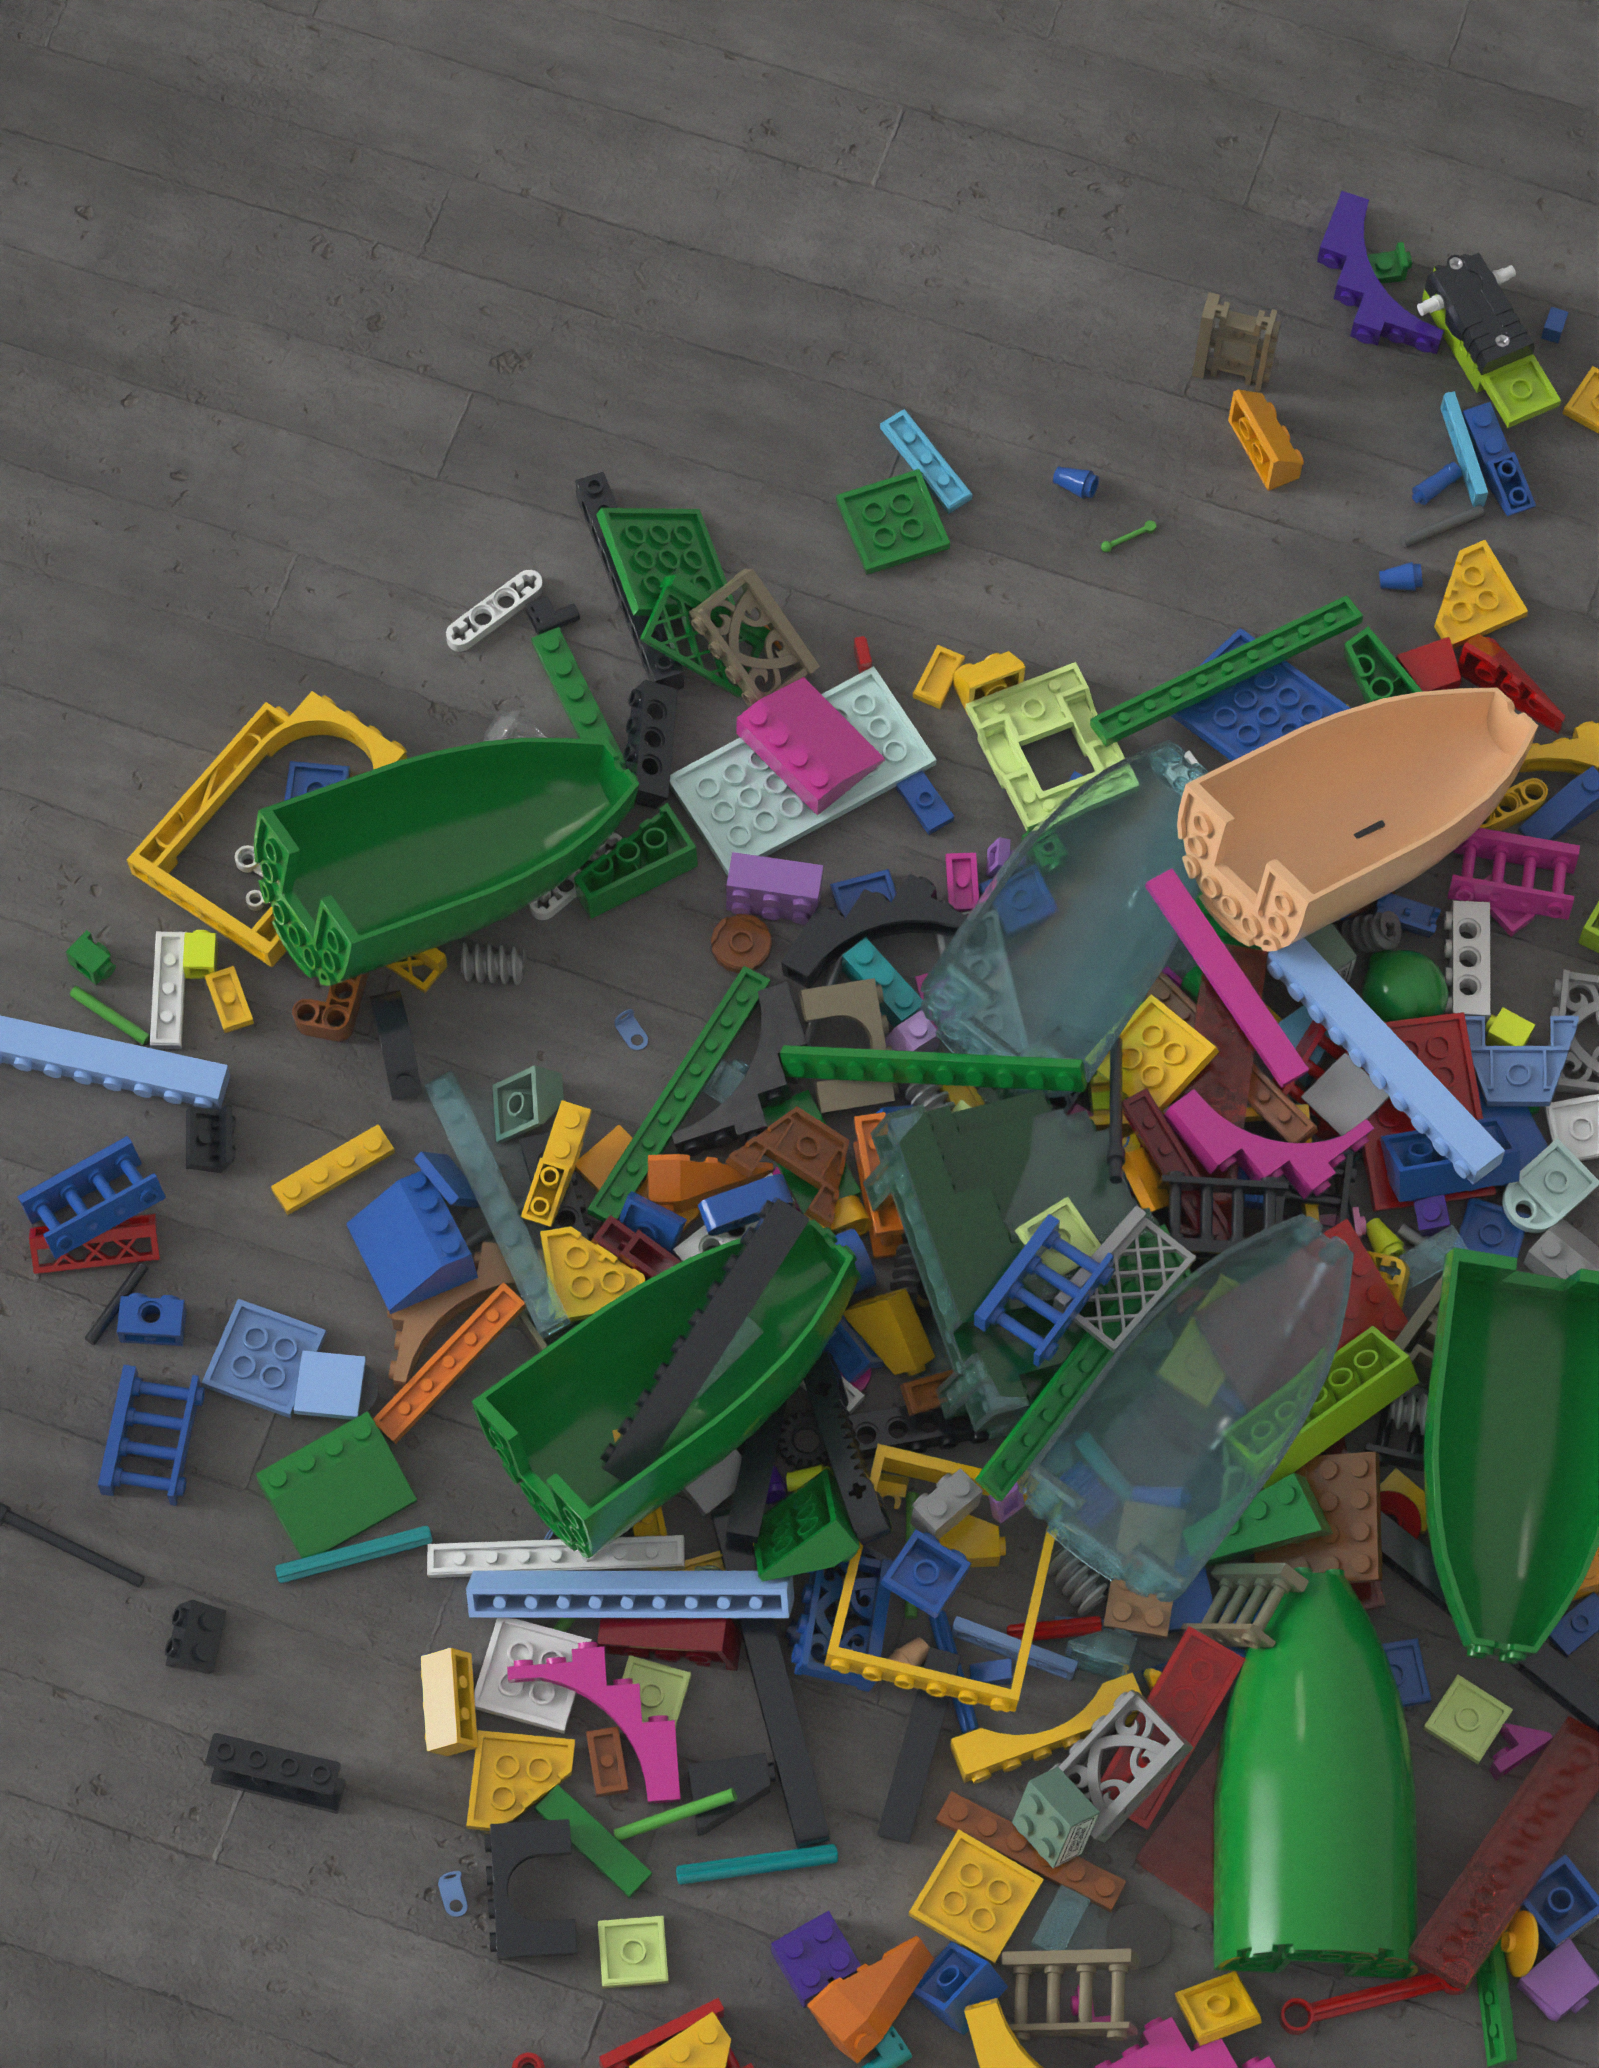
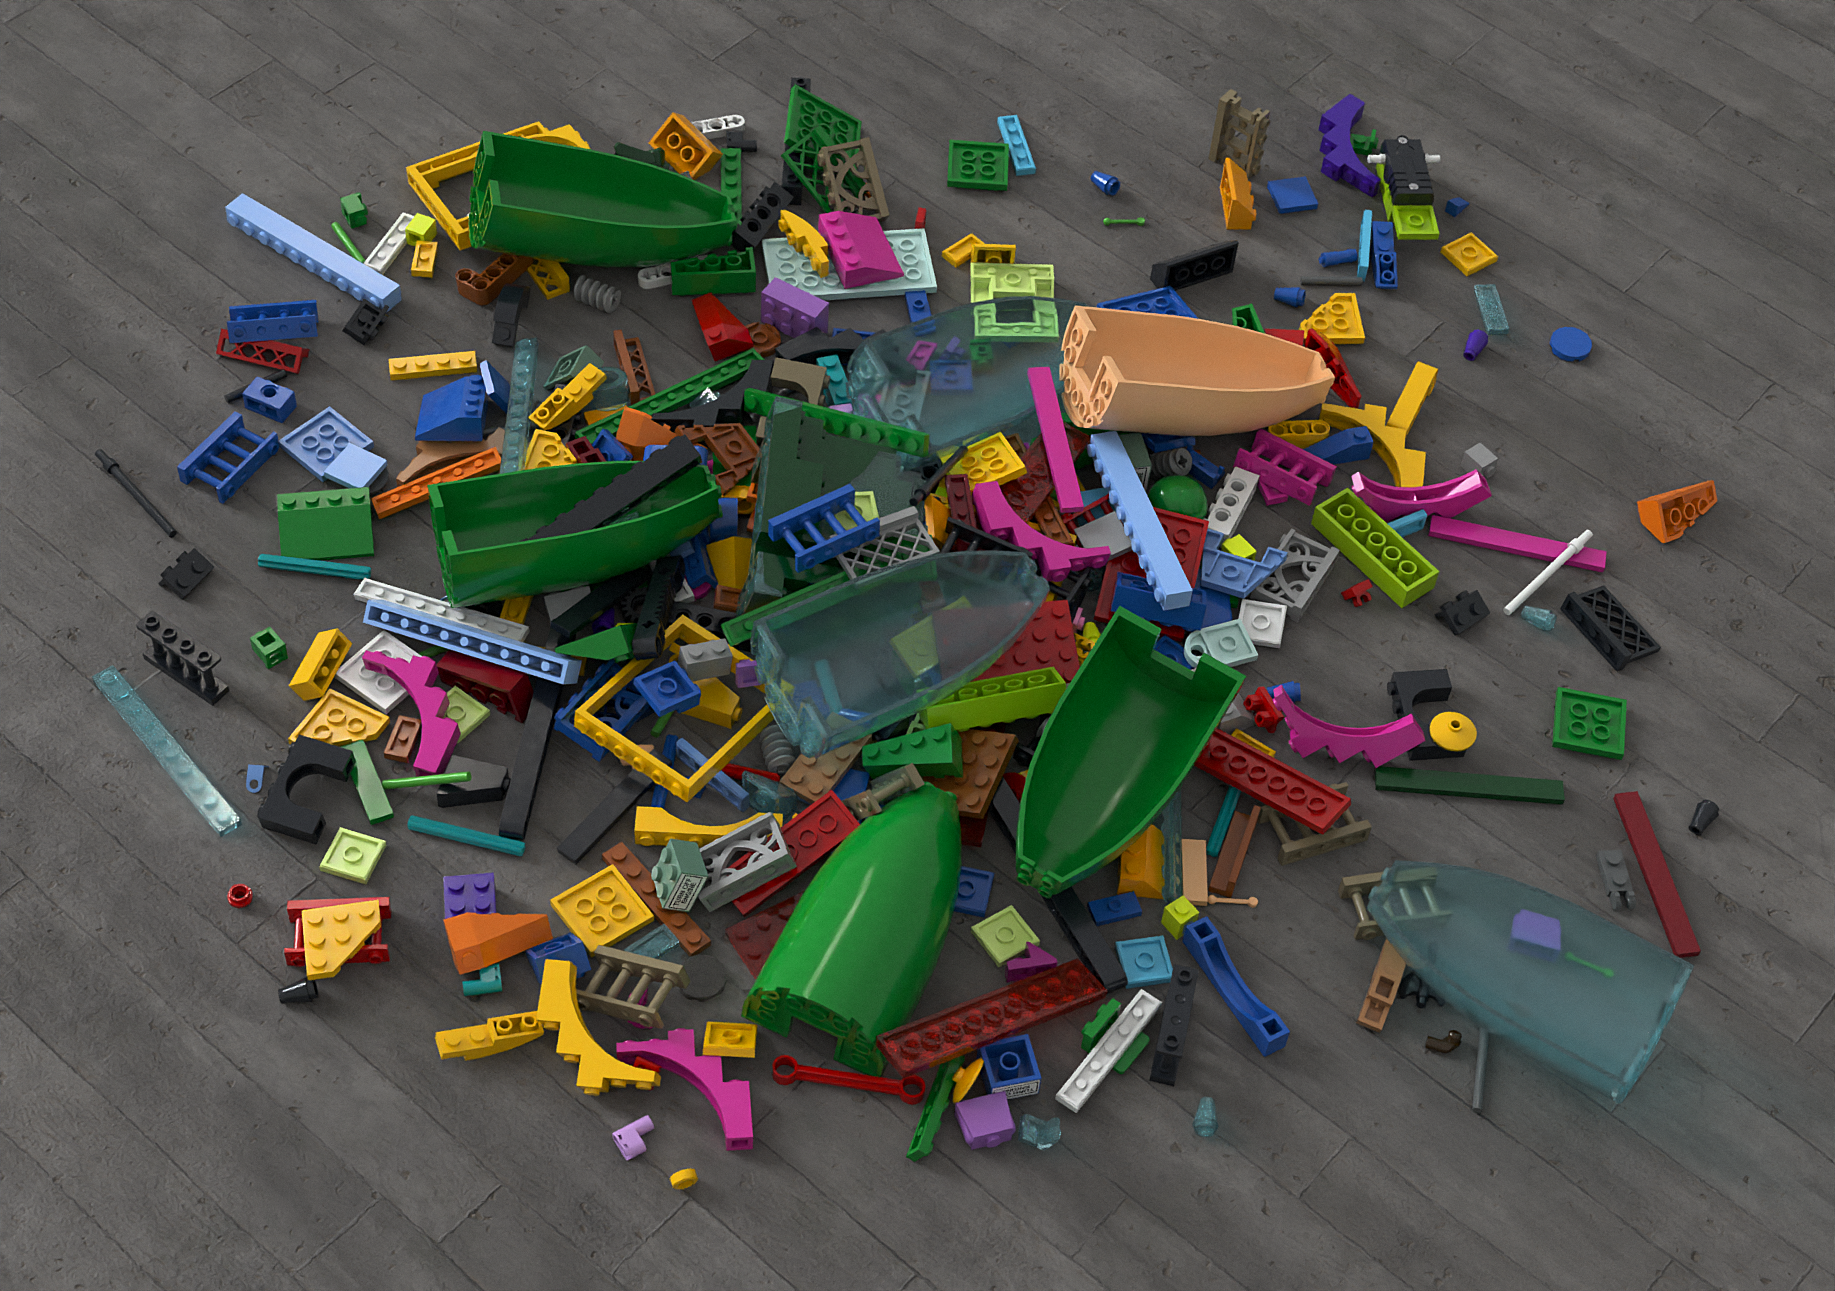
camera: 20 degrees right, 15 degrees down
(318, 1904) = (167, 751): none -> clear light blue plate
(363, 1690) = (269, 647): none -> green brick
(452, 707) = (653, 156): none -> dark green piece
(487, 662) = (685, 146): none -> light orange slope
(597, 1069) = (624, 358): none -> dark orange fence
(608, 1125) = (612, 392): none -> clear light blue piece
(628, 1028) = (663, 358): medium blue piece -> none
(686, 949) = (721, 329): none -> red wedge
(725, 755) = (806, 239): none -> yellow slope
(1226, 670) = (1156, 297): green plate -> none
(1258, 581) = (1195, 266): none -> black slope
(1331, 396) = (1292, 195): none -> blue tile

